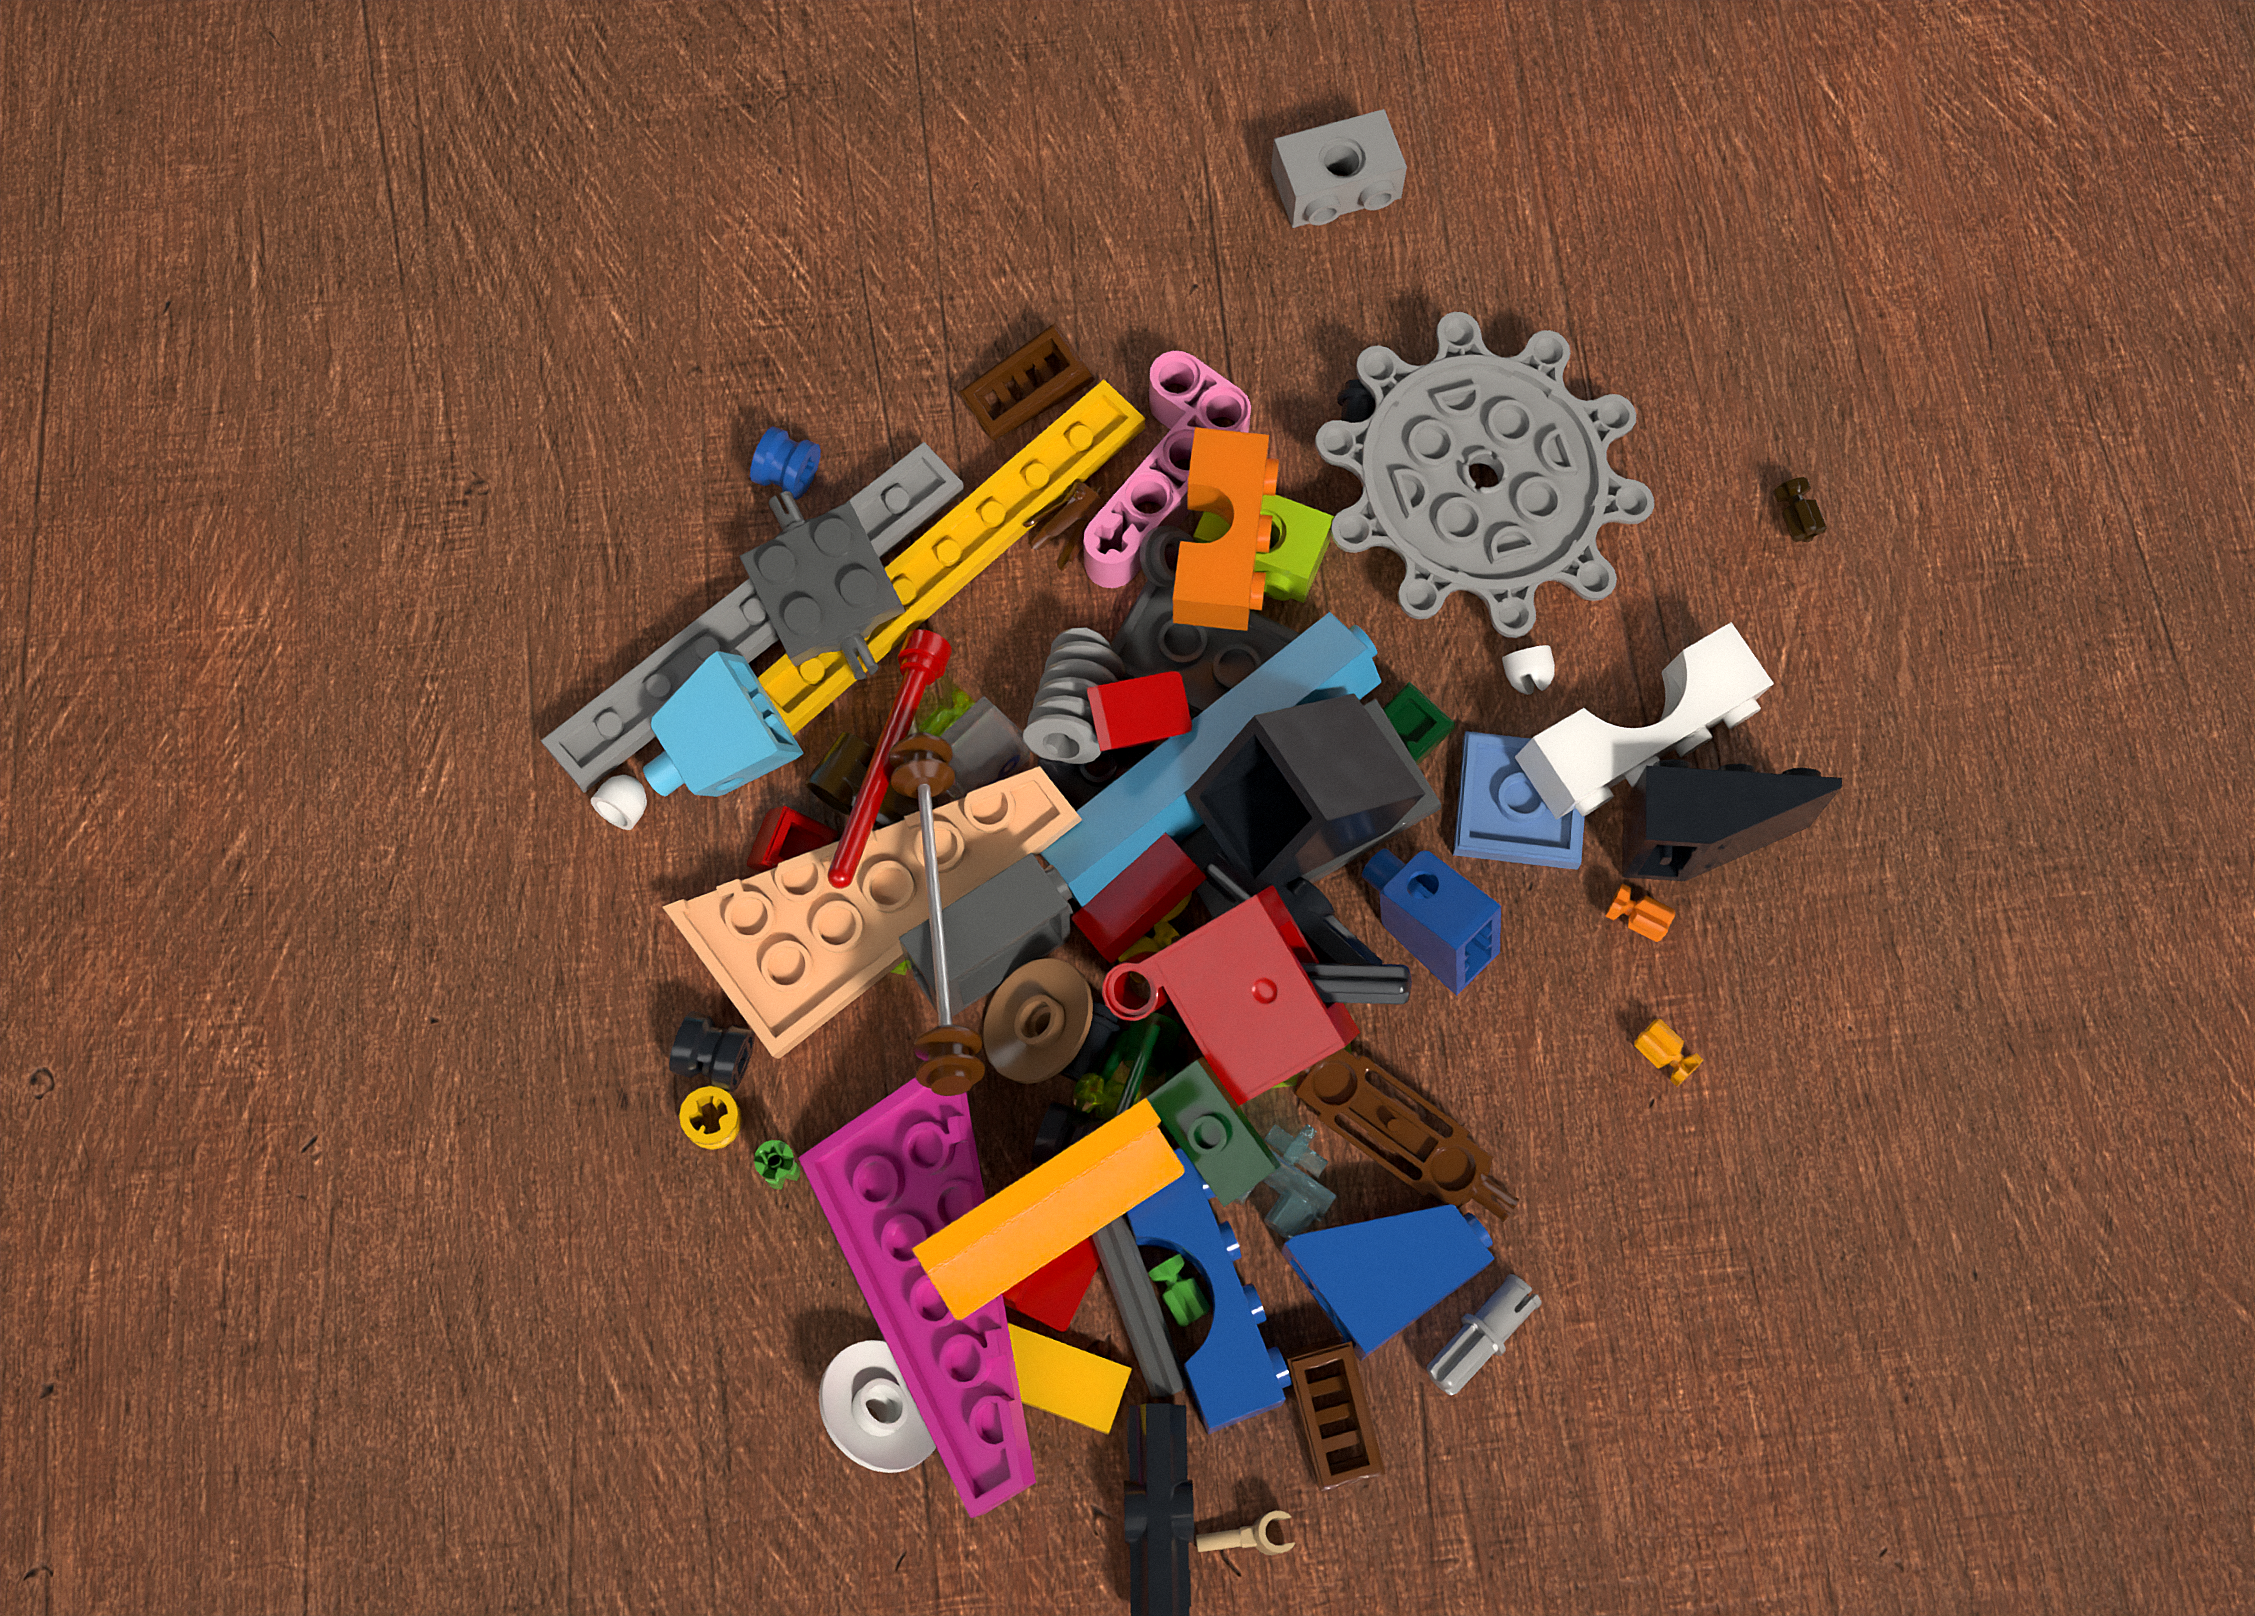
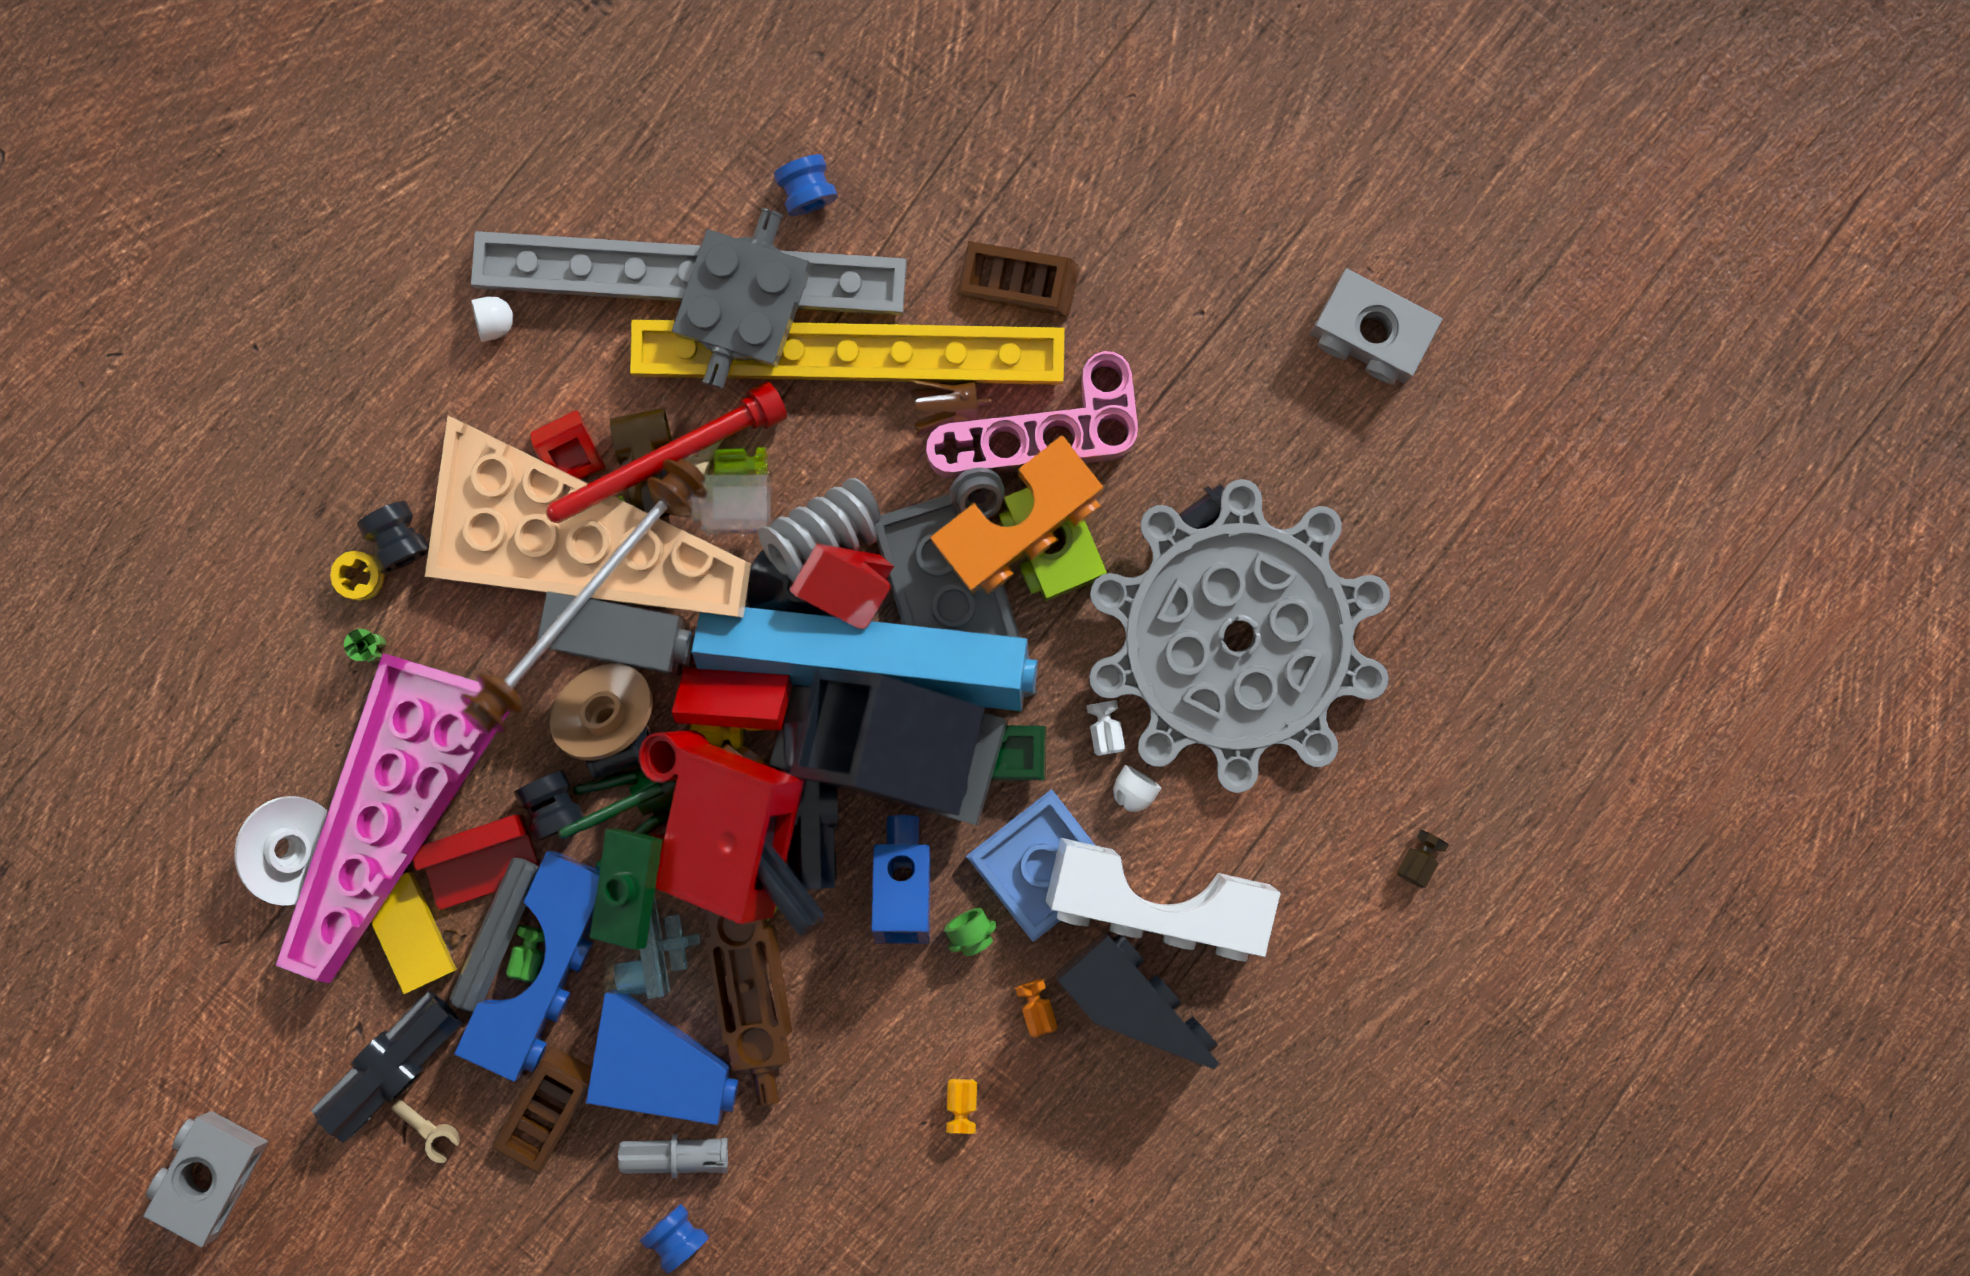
camera: 45 degrees right, 15 degrees up
(718, 731) = (586, 335): medium azure torso -> none
(1049, 1210) = (477, 842): light orange panel -> none
(1090, 1092) = (593, 797): clear neon green piece -> none
(1459, 648) = (1106, 733): none -> white piece
(1524, 904) = (970, 932): none -> bright green plate
(1558, 1404) = (674, 1239): none -> blue wheel

